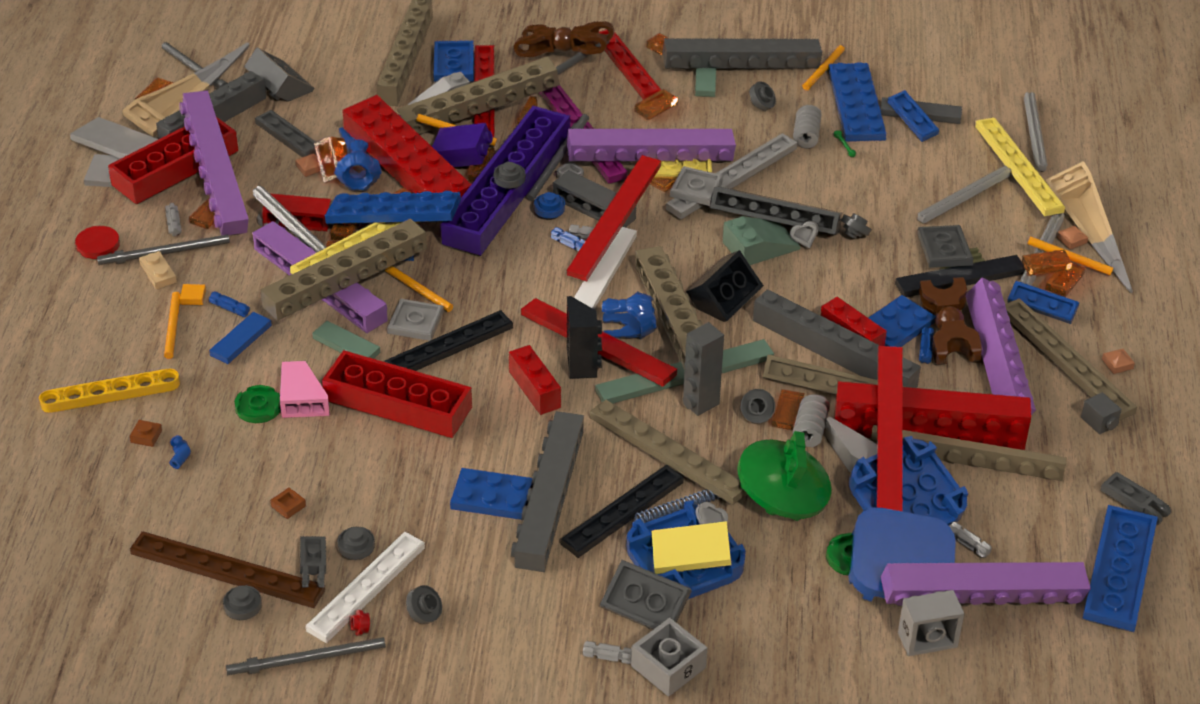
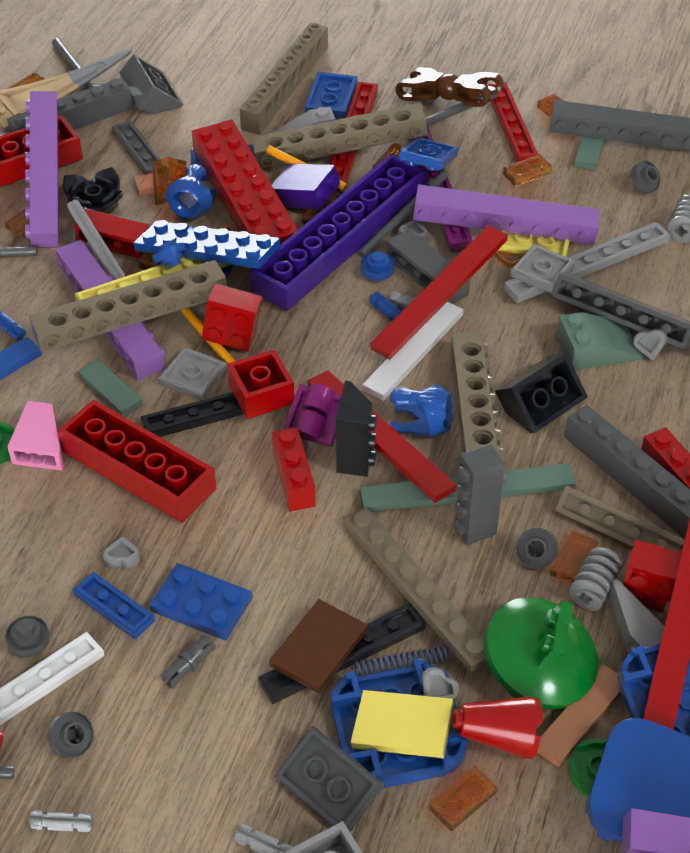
camera: 15 degrees right, 5 degrees up
(270, 175) = (97, 194): none -> black brick
(366, 220) = (169, 254): none -> blue plate
(409, 470) = (121, 553): none -> light grey tile
(418, 509) = (114, 605): none -> blue tile
(438, 667) = (61, 820): none -> light grey axle
(439, 266) = (231, 317): none -> red brick
(485, 315) = (260, 383): none -> red brick
(498, 538) = (187, 661): none -> dark grey pin
(509, 175) = (338, 227): dark grey plate -> none
(541, 331) = (314, 414): none -> magenta plate
(549, 492) = (262, 615): dark grey brick -> none
(567, 100) = (428, 153): none -> blue plate
(603, 506) = (318, 646): none -> reddish brown tile
(753, 592) = (463, 798): none -> clear orange plate
(771, 532) = (502, 724): none -> red cone
(826, 522) = (579, 718): none -> nougat tile

